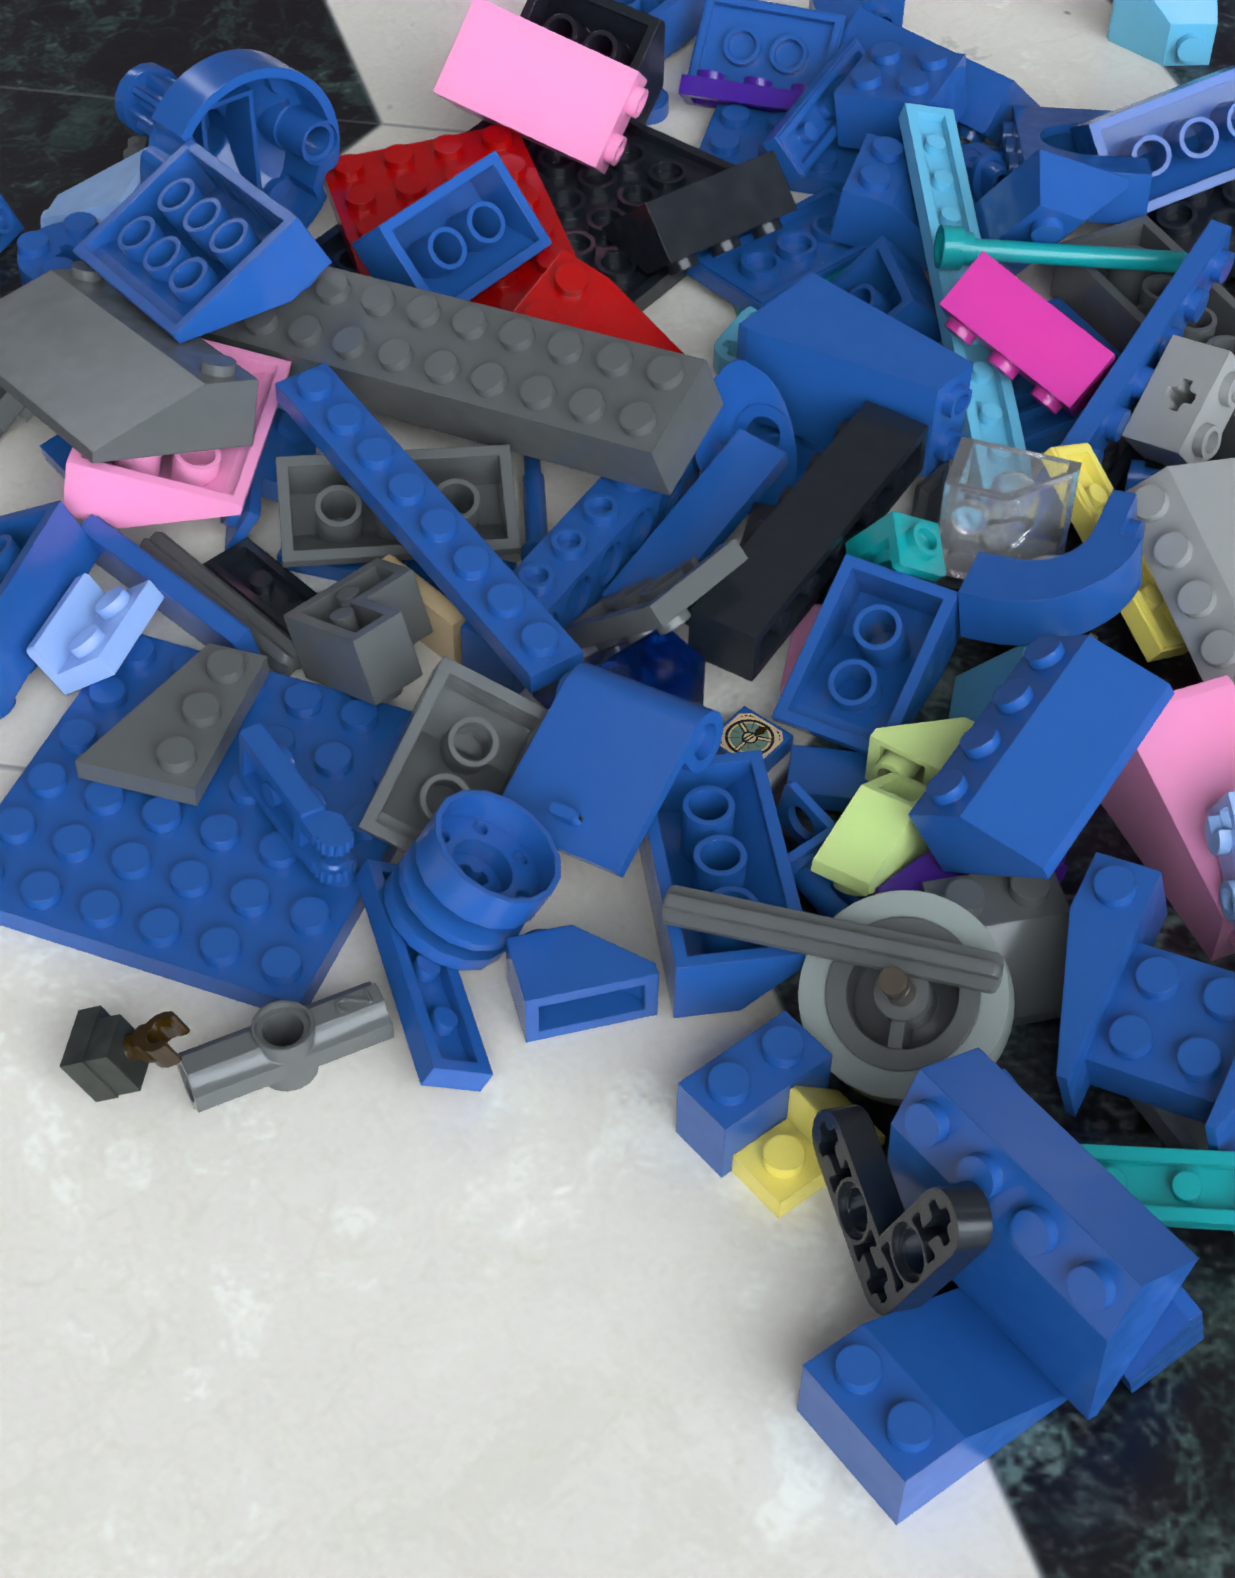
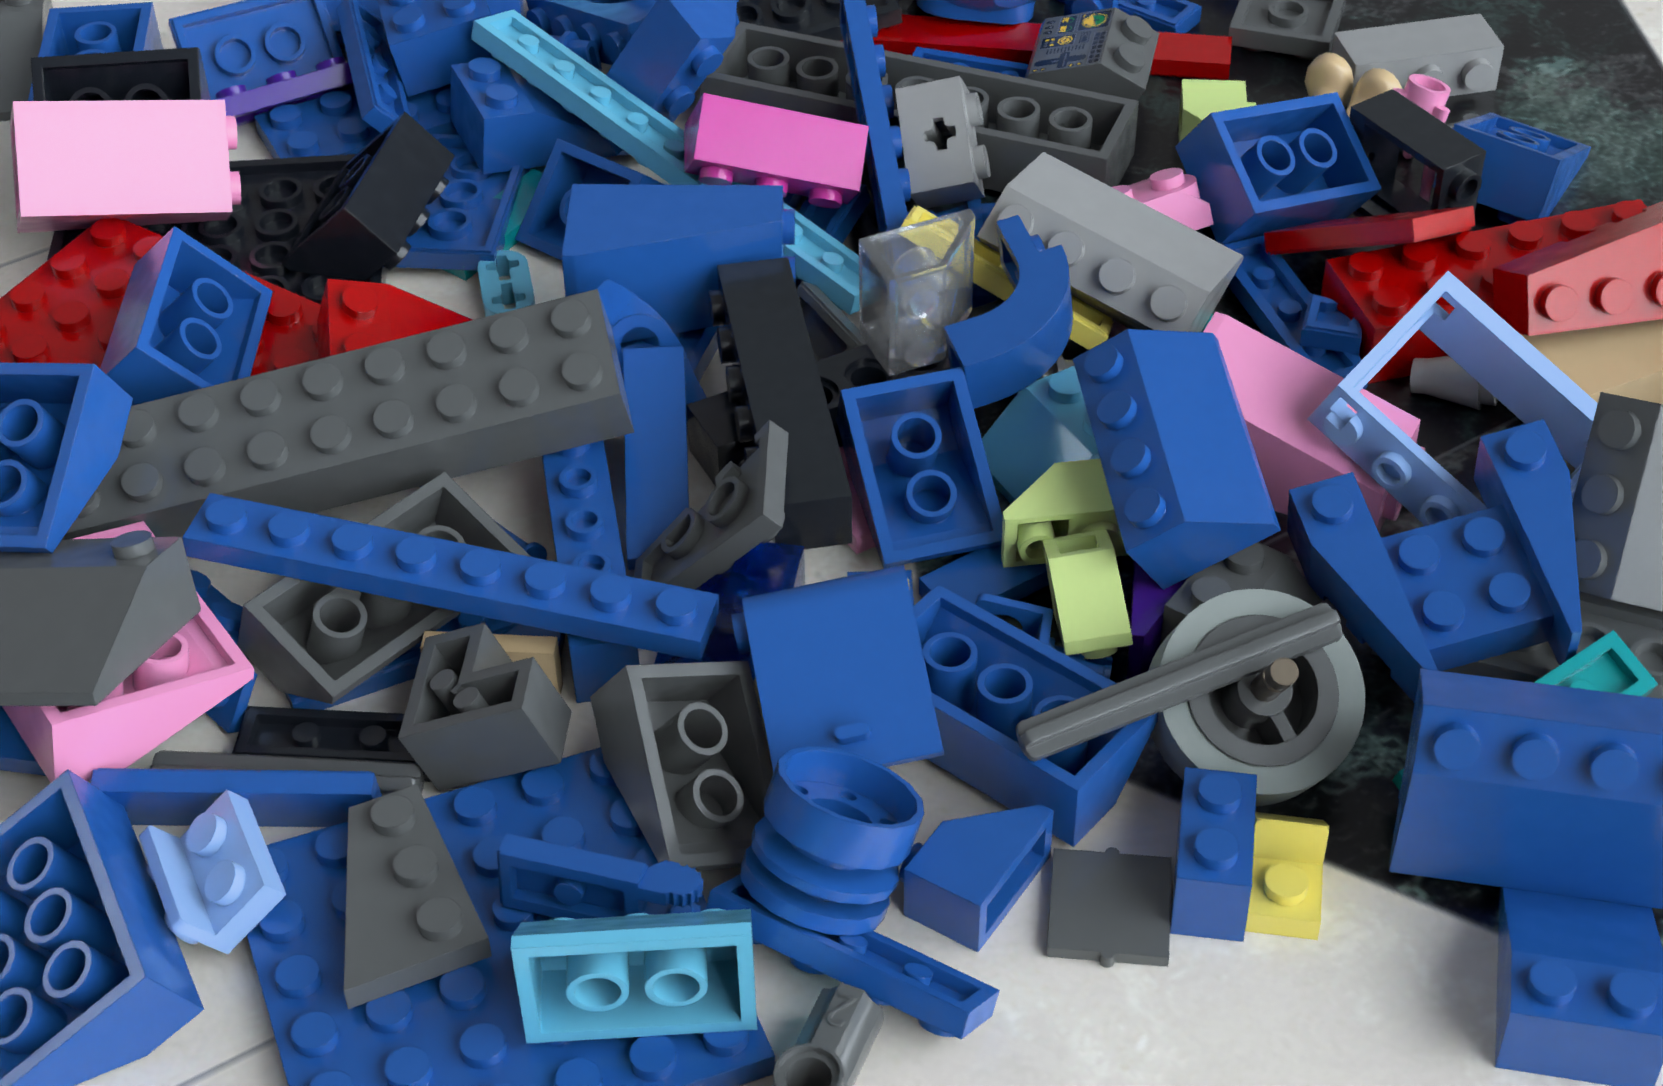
camera: 40 degrees left, 5 degrees down
(244, 875) = (635, 975): none -> medium azure slope
(639, 1077) = (1110, 907): none -> dark grey piece
(895, 1251) = (1479, 873): black beam -> none
(903, 545) = (871, 358): teal bracket -> none
(957, 248) = (647, 111): teal piece -> none

